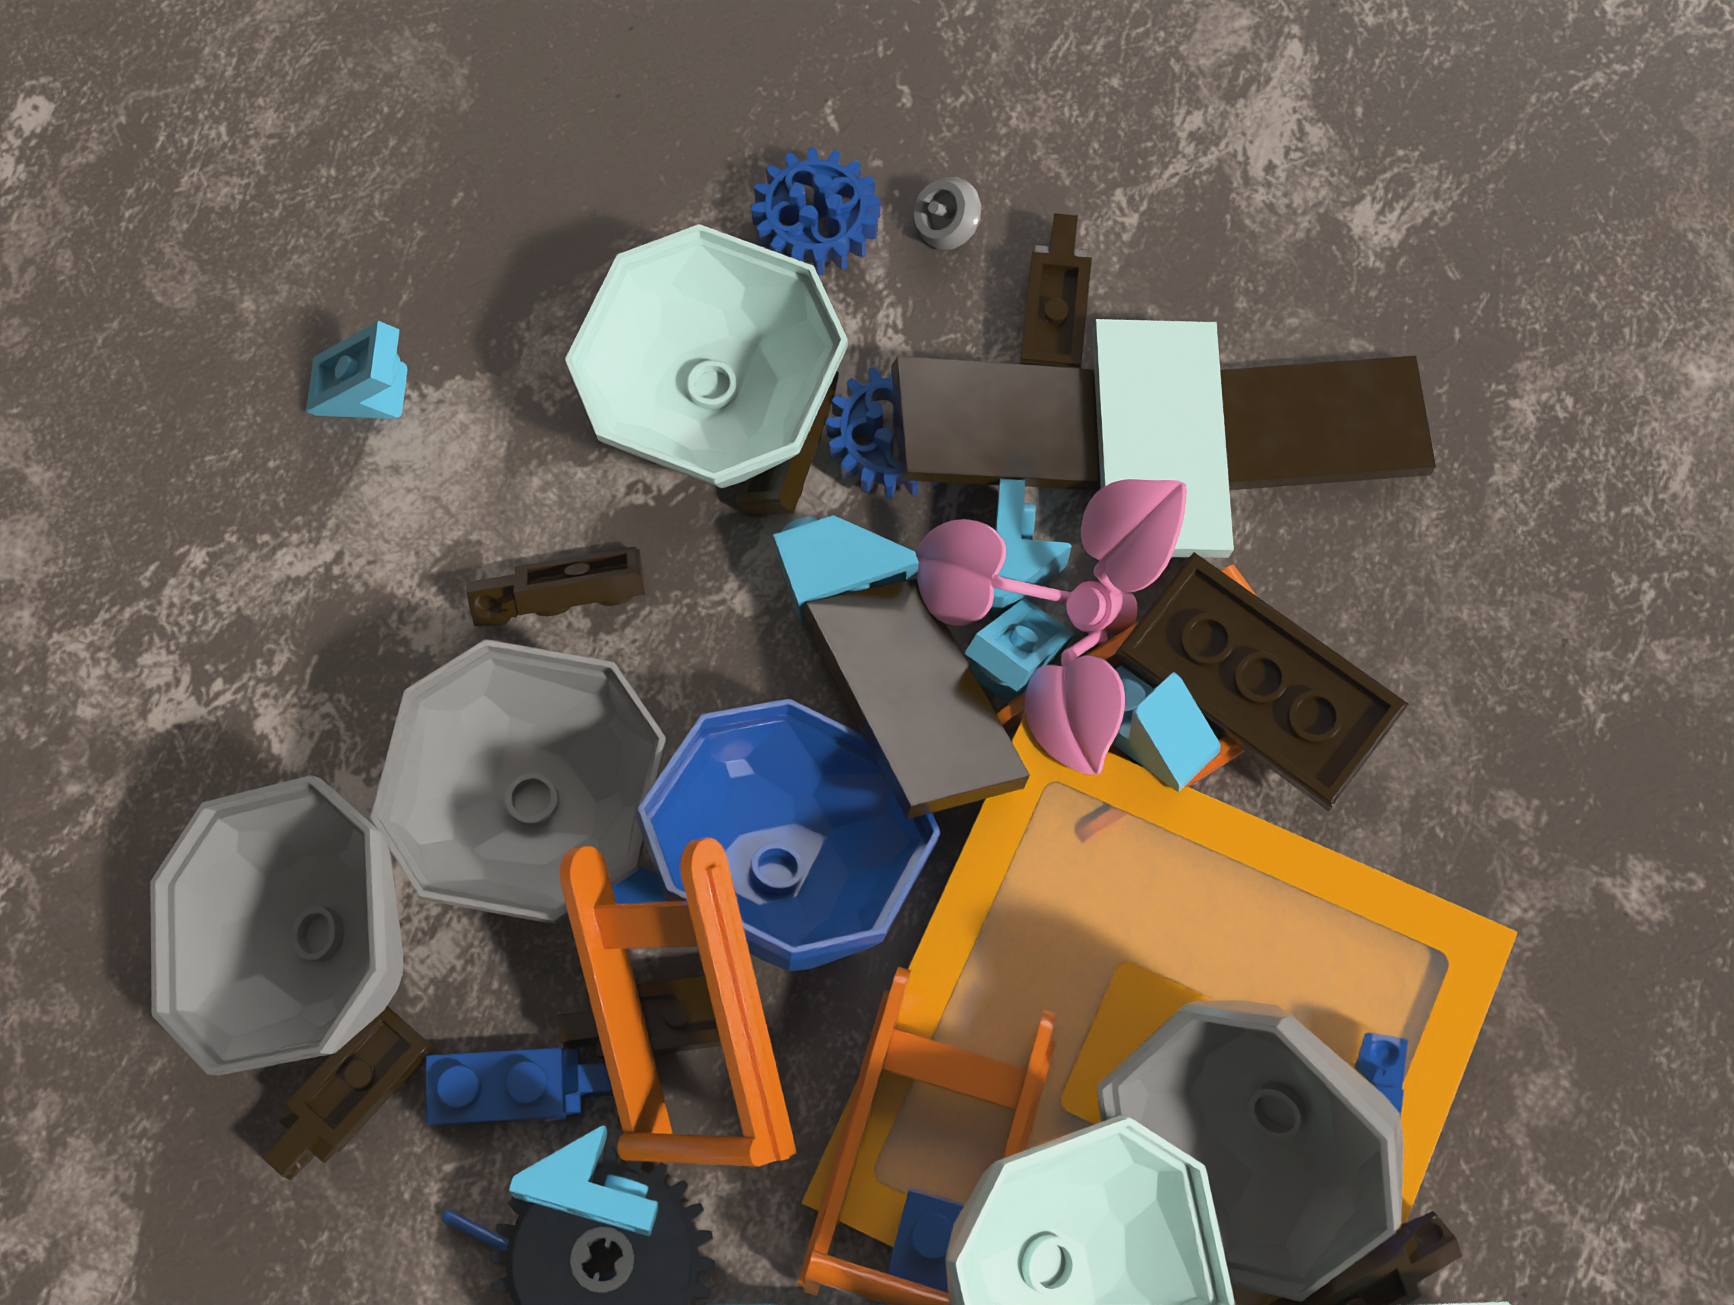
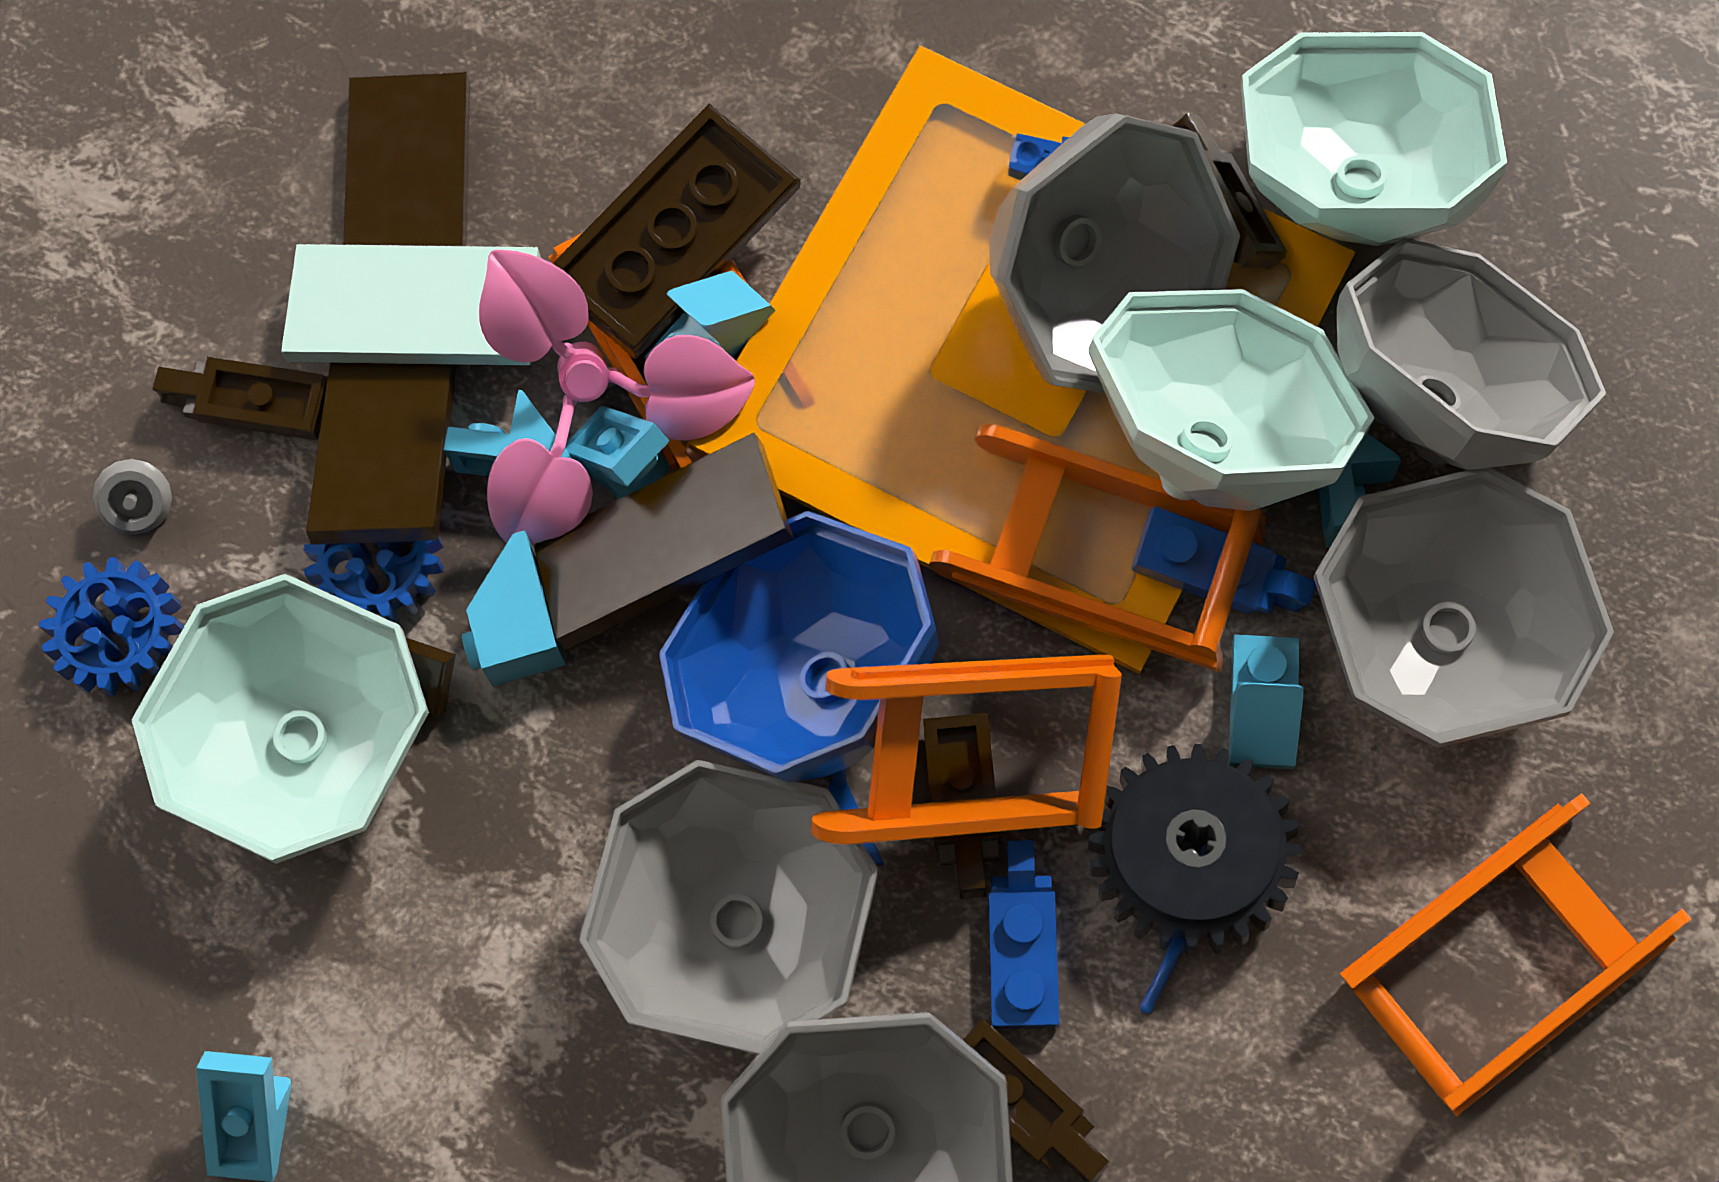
camera: 80 degrees left, 0 degrees up
(557, 585) = (508, 895): dark brown hinge -> none
(567, 1185) = (1127, 853): medium azure slope -> none

